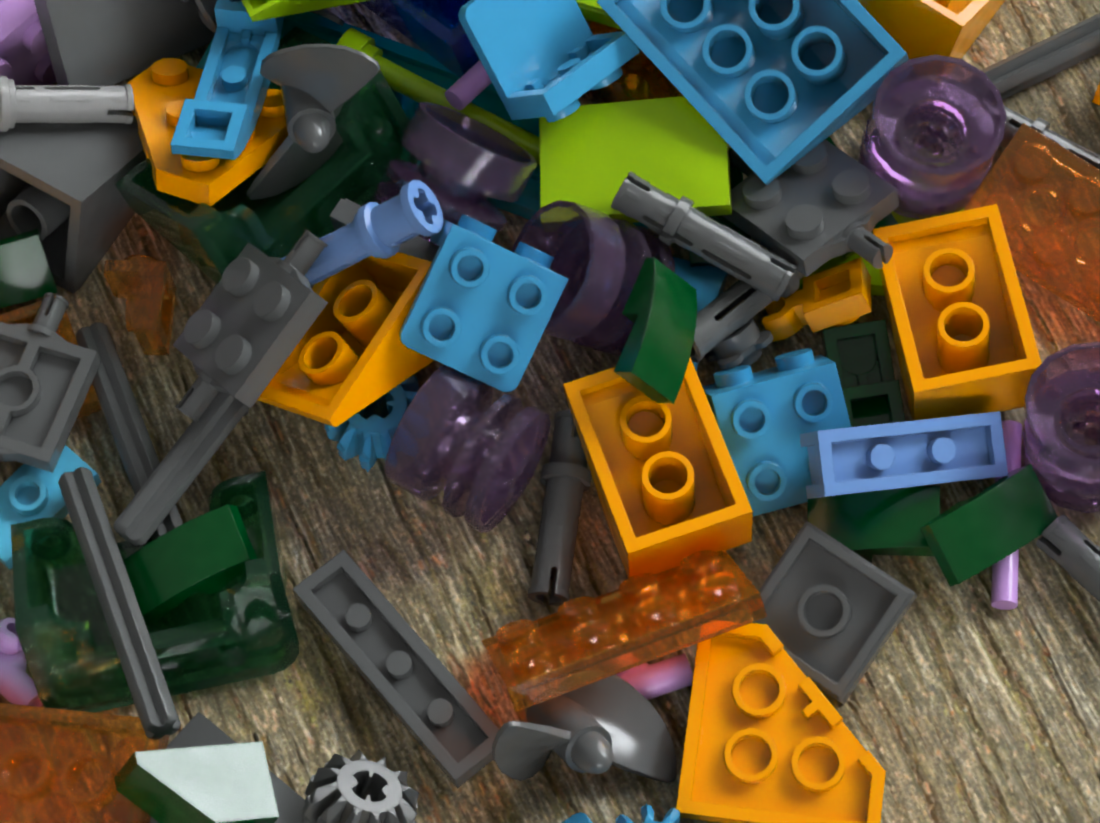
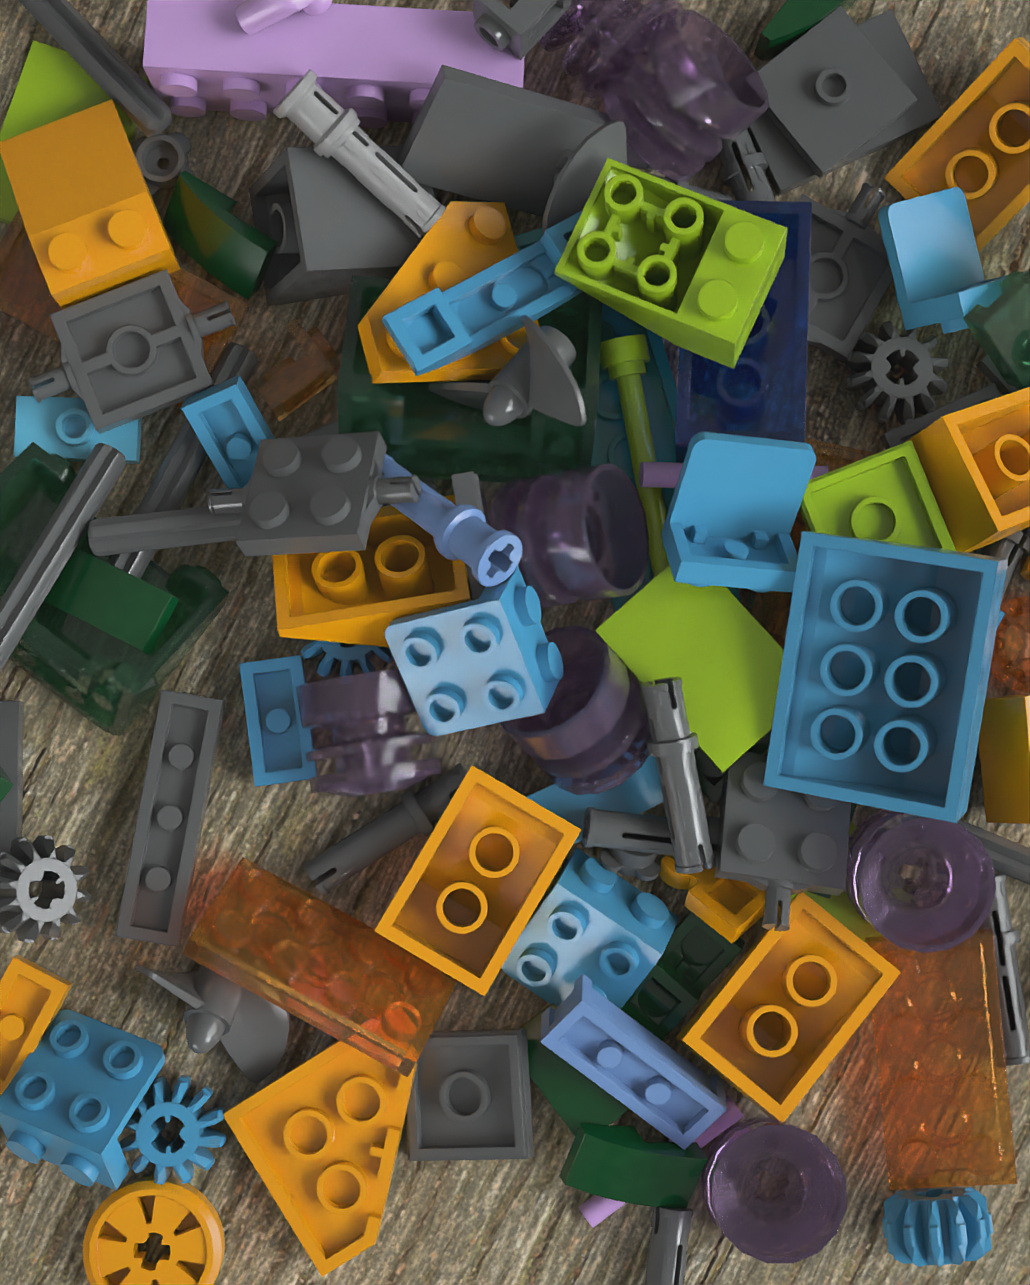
camera: 35 degrees right, 20 degrees up
(143, 372) = (228, 428): none -> dark azure plate
(399, 525) = (274, 721): none -> dark azure plate
(662, 332) = (587, 801): dark green slope -> none

